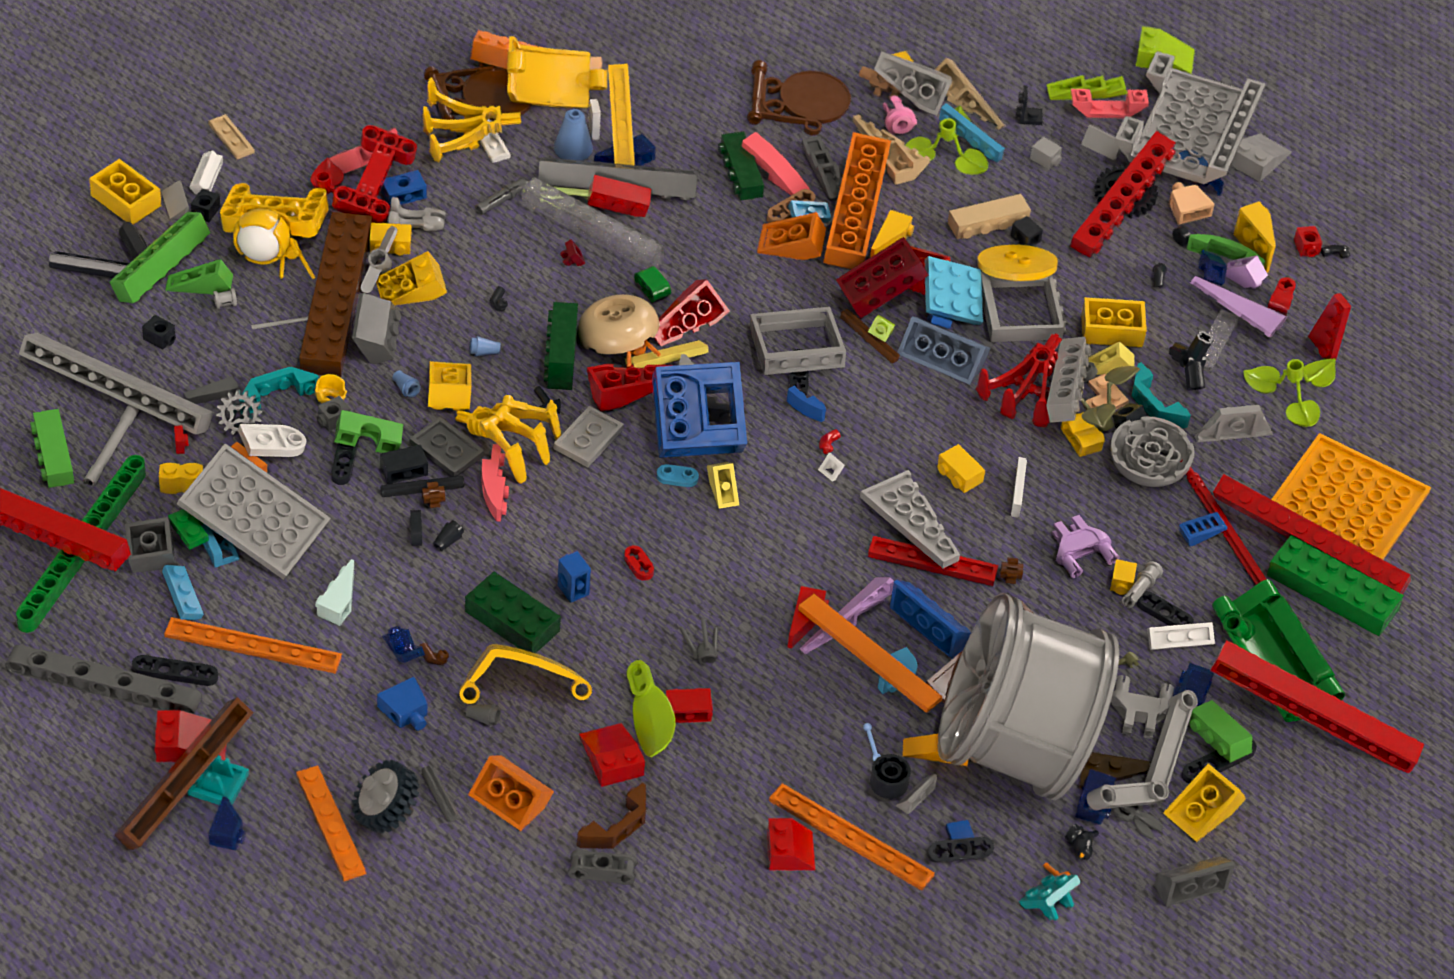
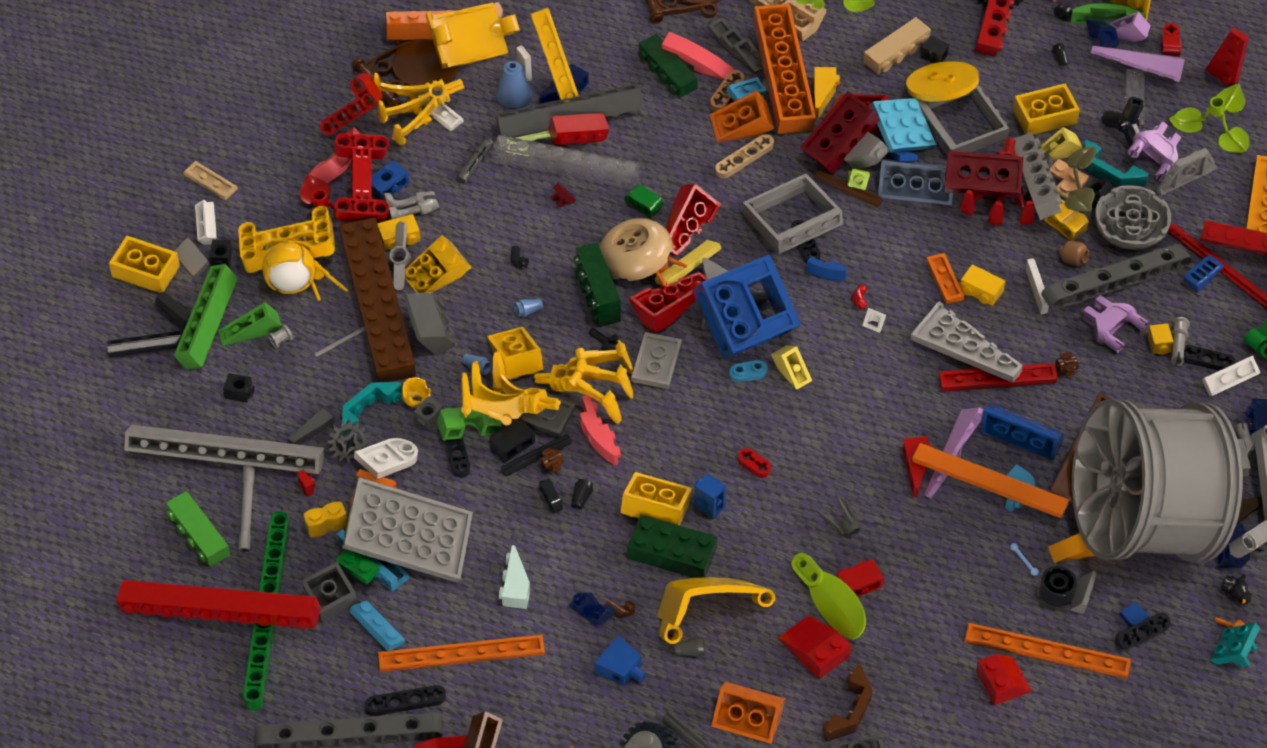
camera: 15 degrees left, 5 degrees up
(400, 424) = (498, 405): none -> yellow piece
(415, 98) = (350, 110): none -> red beam
(517, 562) = (655, 499): none -> yellow brick
(777, 273) = (744, 156): none -> tan beam
(902, 305) = (867, 152): none -> light grey slope
(926, 451) = (945, 278): none -> orange plate
(1004, 347) = (989, 163): none -> dark red brick
(1074, 468) = (1074, 253): none -> medium nougat head
(1105, 502) = (1116, 276): none -> dark grey beam
(1211, 389) = (1157, 147): none -> lavender connector

